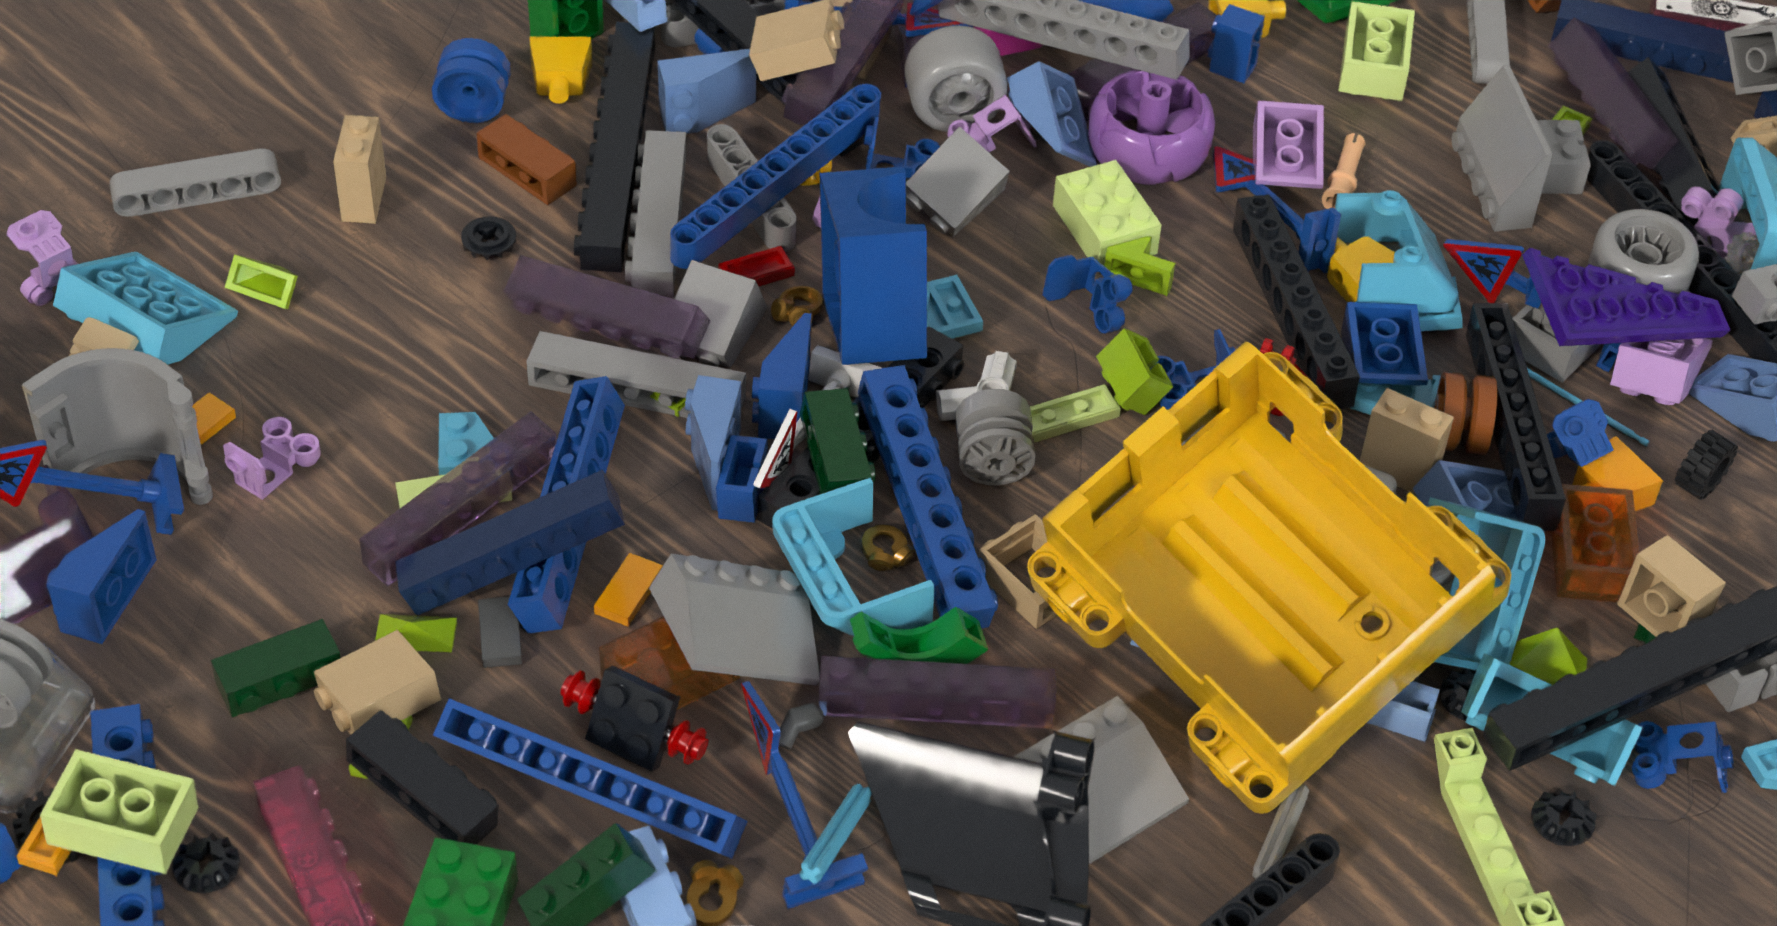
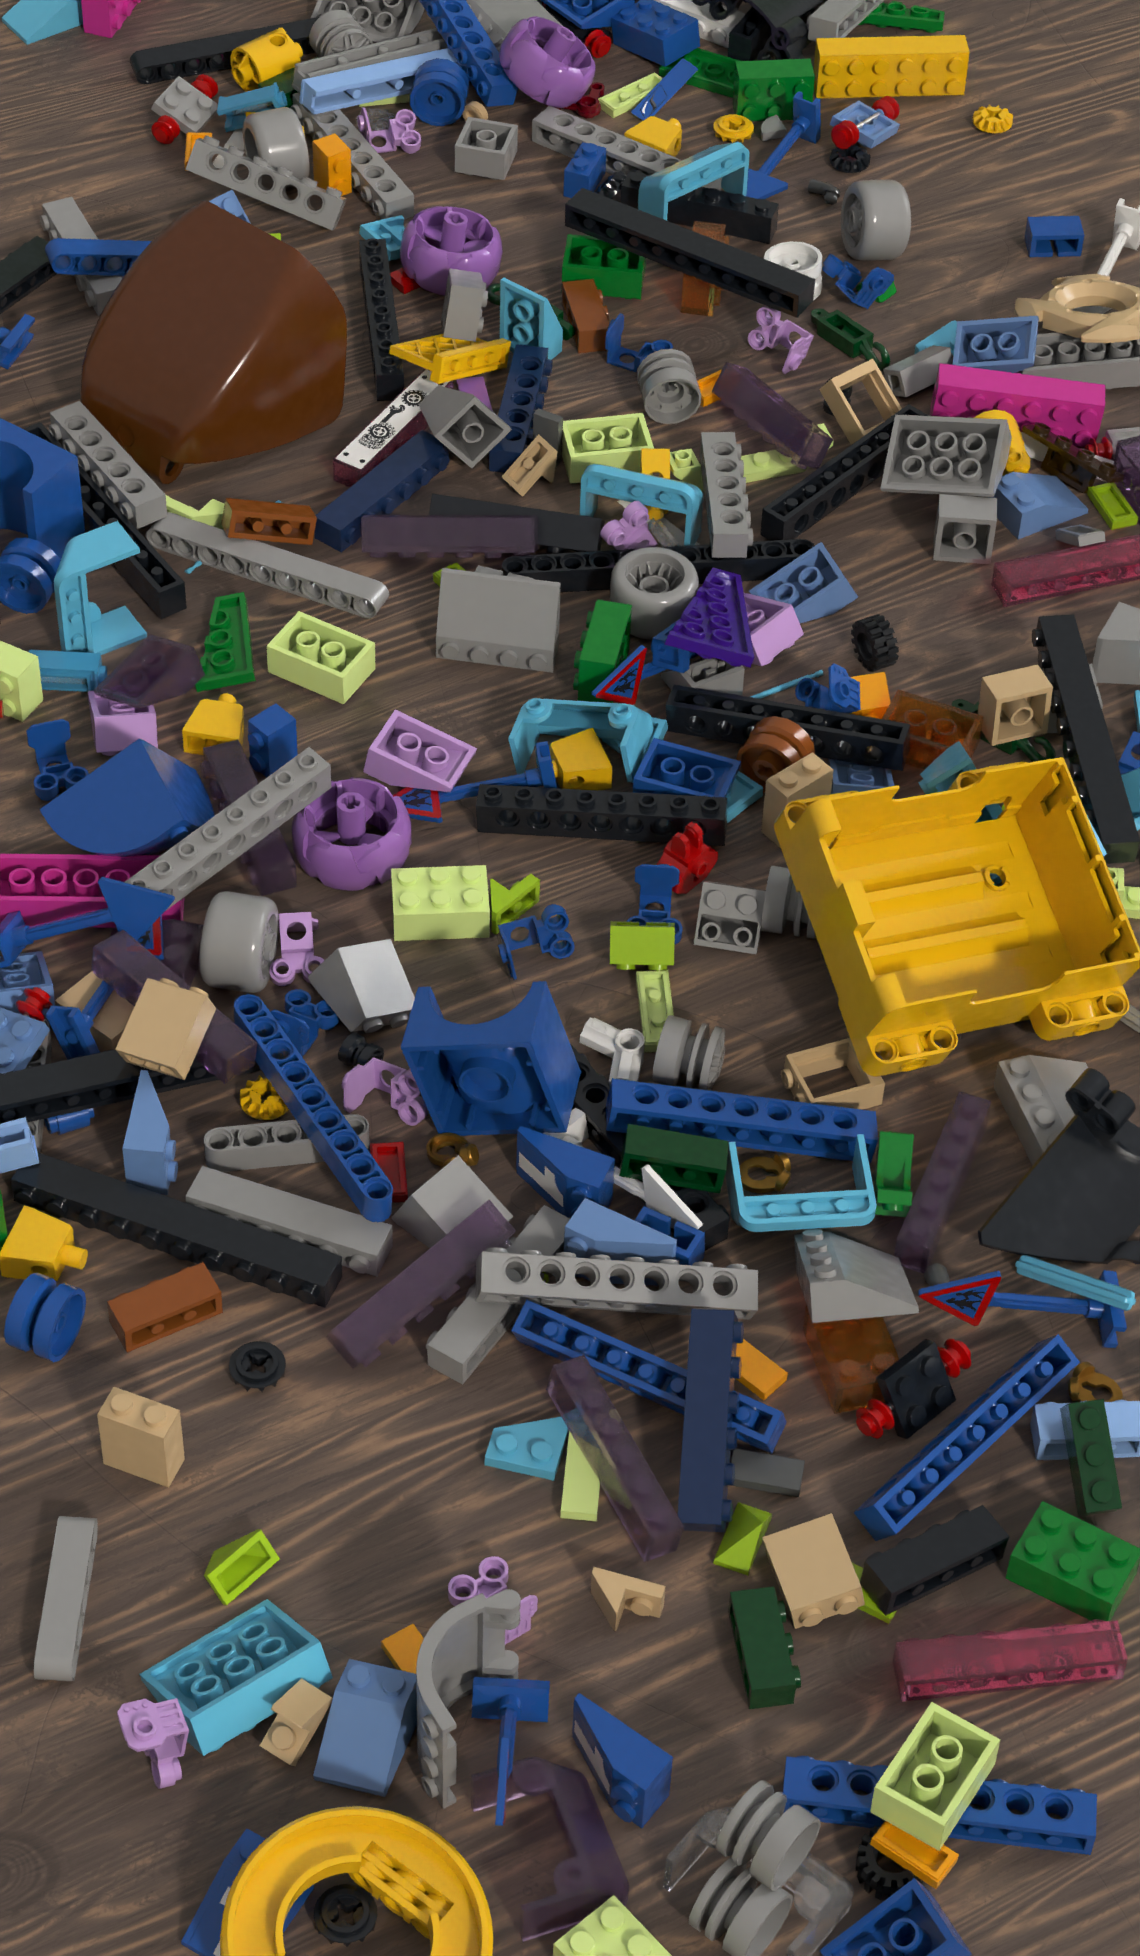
camera: 70 degrees left, 0 degrees up
(304, 546) = (620, 1592): none -> tan slope
(612, 343) = (496, 1287): none -> light grey brick
(1053, 108) = (304, 893): medium blue slope -> none
(1343, 178) = (484, 746): light nougat pin -> none
(1547, 229) = (602, 646): none -> green brick

